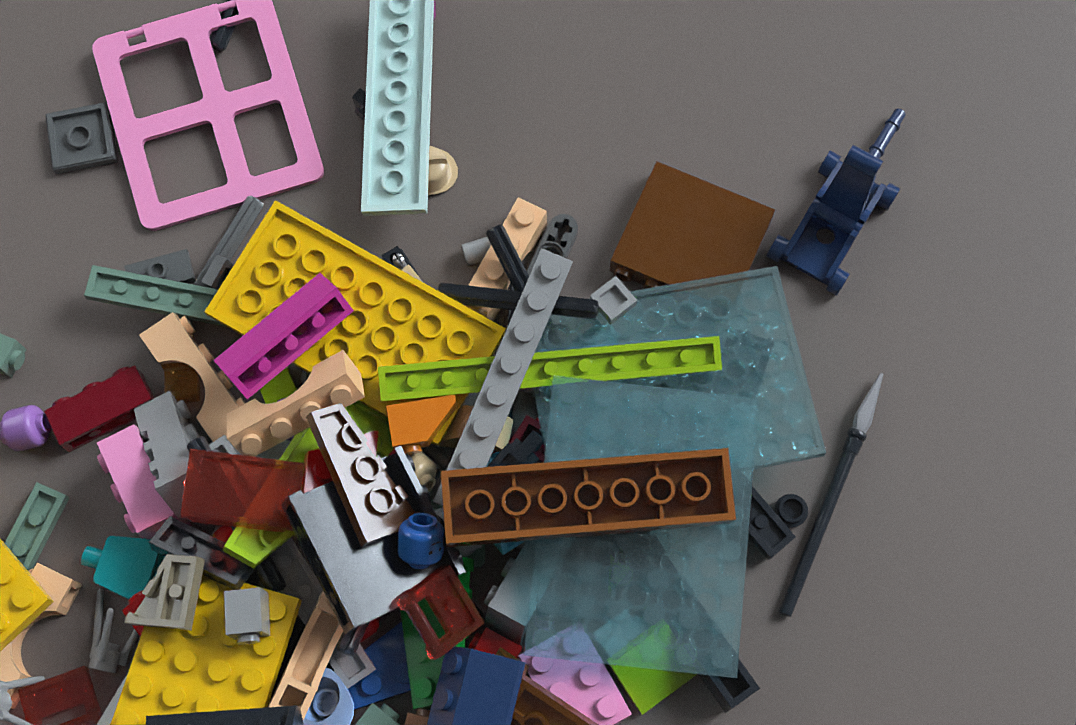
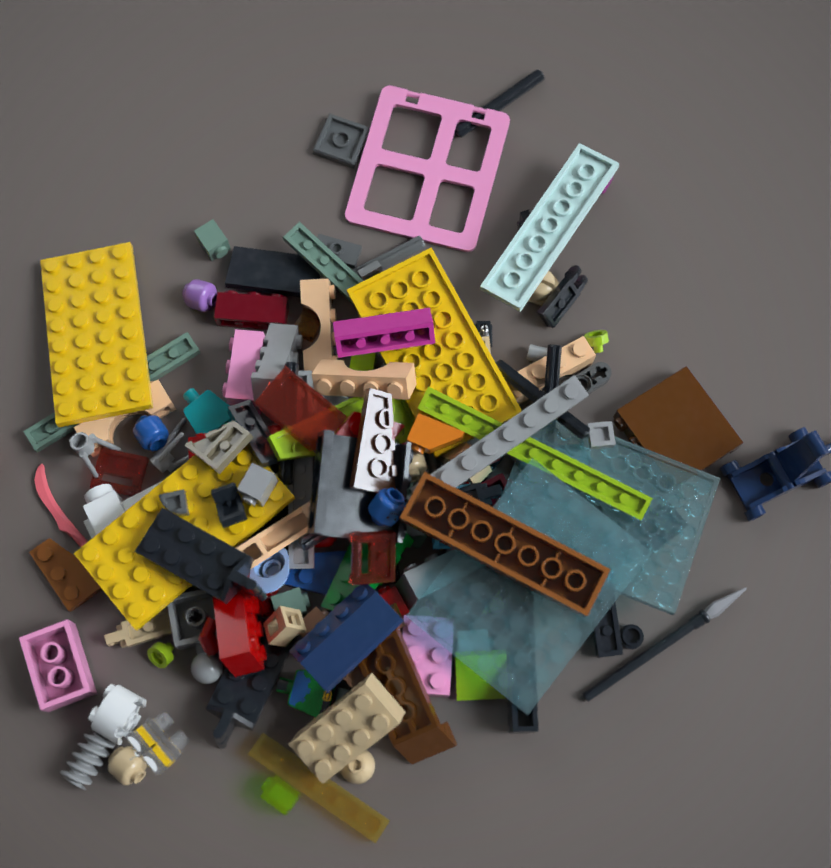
camera: 30 degrees right, 0 degrees up
(69, 633) = (151, 432): none -> blue head
(91, 348) = (268, 271): none -> black tile
(158, 699) = (175, 502): none -> dark grey tile
(227, 660) = (229, 505): none -> black bracket
(464, 166) = (562, 297): none -> black hinge
(535, 191) = (597, 339): none -> lime tile

